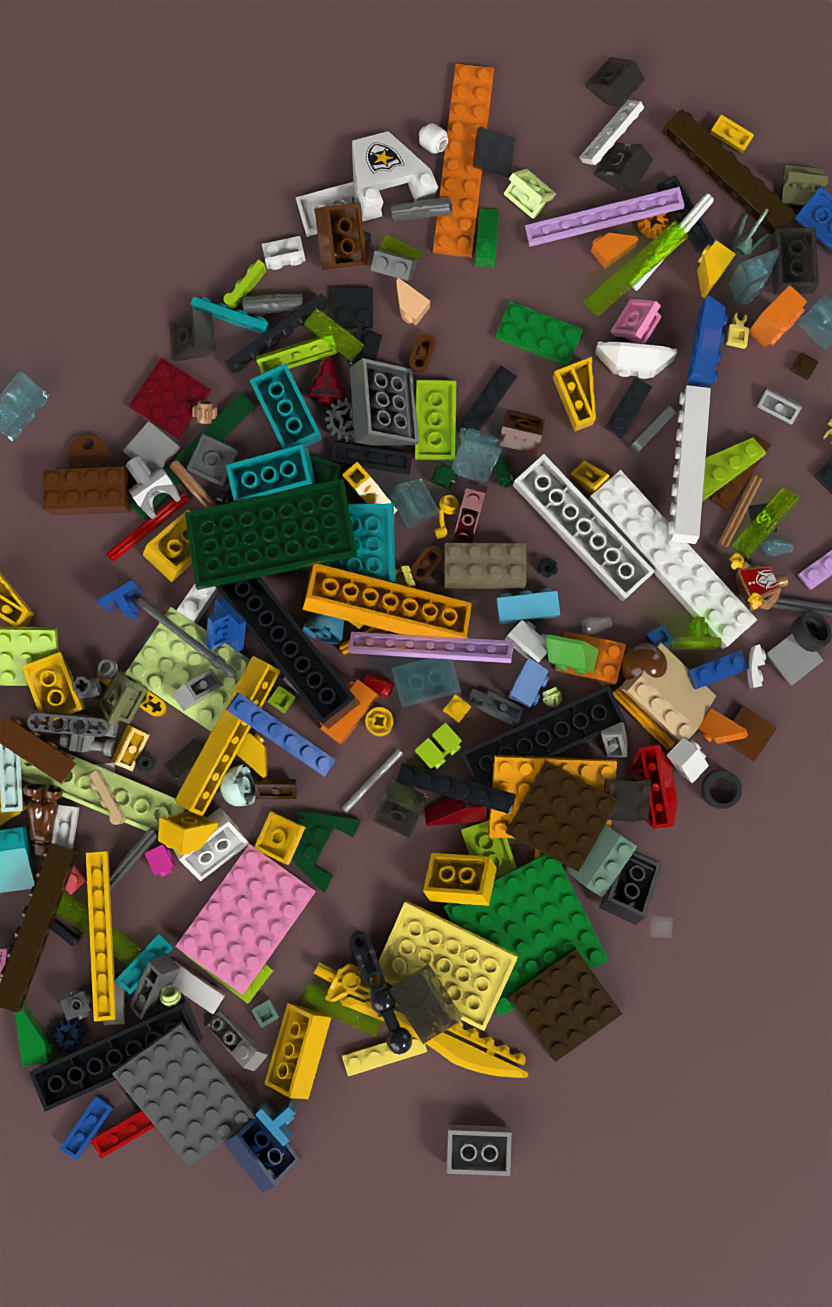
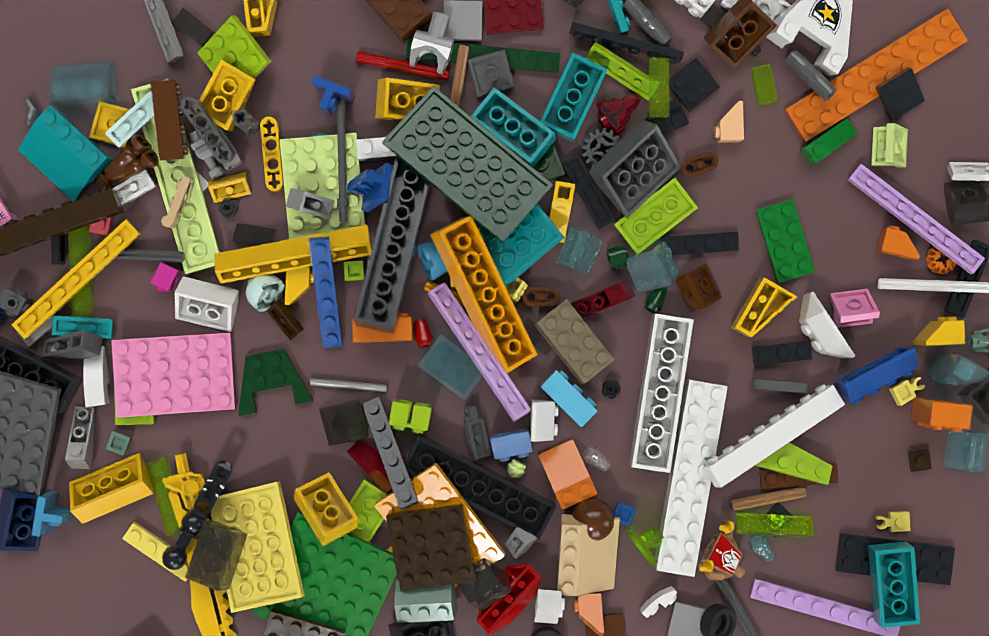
camera: 55 degrees right, 5 degrees up
(107, 668) = (272, 123): light grey plate -> none
(122, 699) = (258, 153): olive bracket -> none
(170, 996) = (74, 365): yellowish green plate -> none
(185, 831) = (198, 280): yellow slope -> none
(204, 412) = (522, 37): medium nougat gear -> none
(224, 497) = (469, 106): black plate -> none
(279, 837) = (251, 351): yellow tile -> none
(311, 250) = (712, 16): none -> clear smoke tile
(379, 721) = (395, 356): yellow wheel -> none
(393, 264) = (750, 88): brick -> none
(433, 138) = (874, 39): white head -> none
(441, 531) = (574, 288): yellow hand -> none
(449, 504) = (599, 277): yellow plate -> none
(456, 709) = (449, 406): yellow brick -> none
(571, 654) = (557, 459): bright green slope -> none
(589, 477) = (704, 366): yellow slope -> none
(636, 269) = (894, 275): clear neon green plate -> none
(644, 719) = (553, 549): light orange axle -> none
(718, 669) = (634, 575): blue plate -> none
(779, 405) = (874, 465): light grey slope -> none

